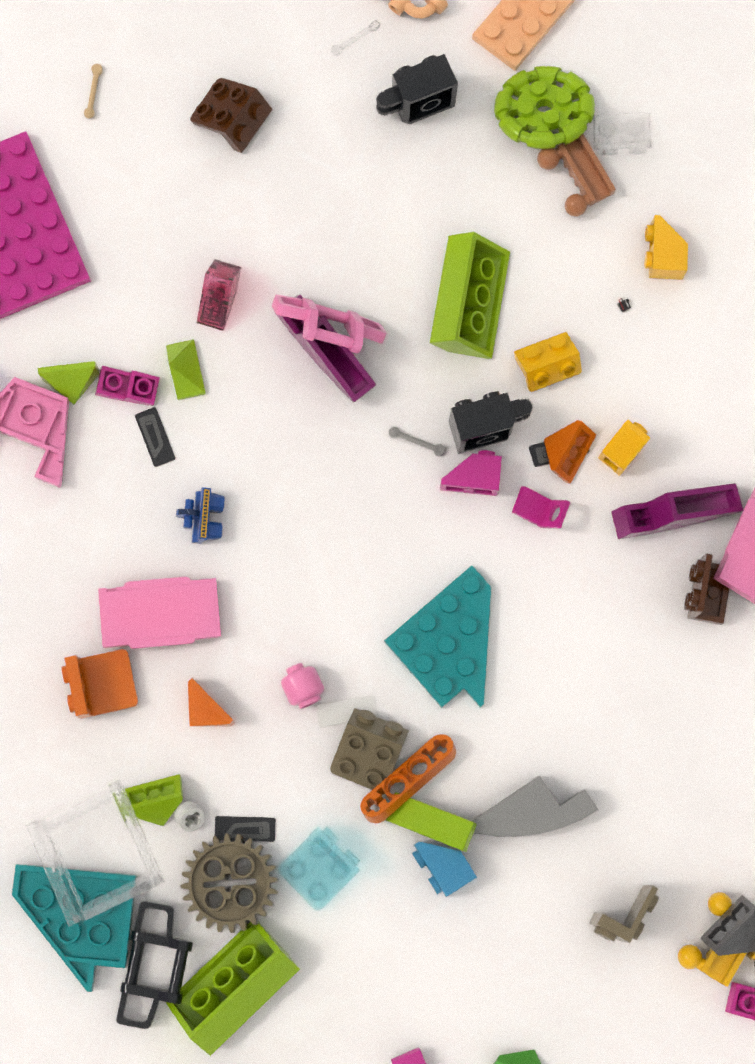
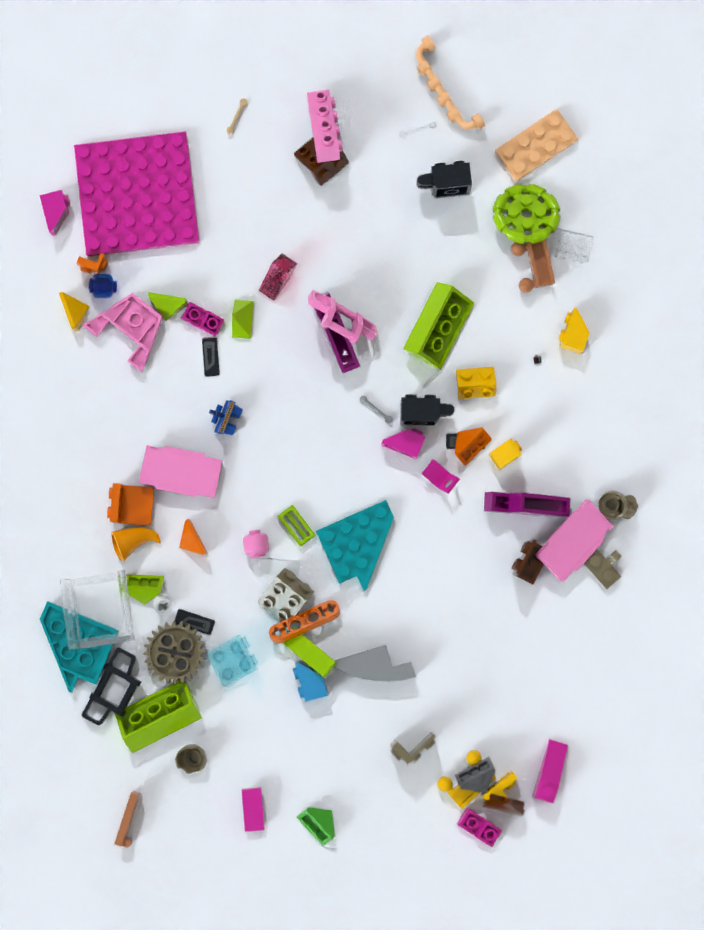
camera: 20 degrees right, 5 degrees up
(110, 737) = (127, 540): none -> light orange hat
(222, 65) = (323, 126): none -> bright pink brick
(301, 1036) = (191, 758): none -> dark tan hair
(373, 656) = (306, 538): none -> lime tile

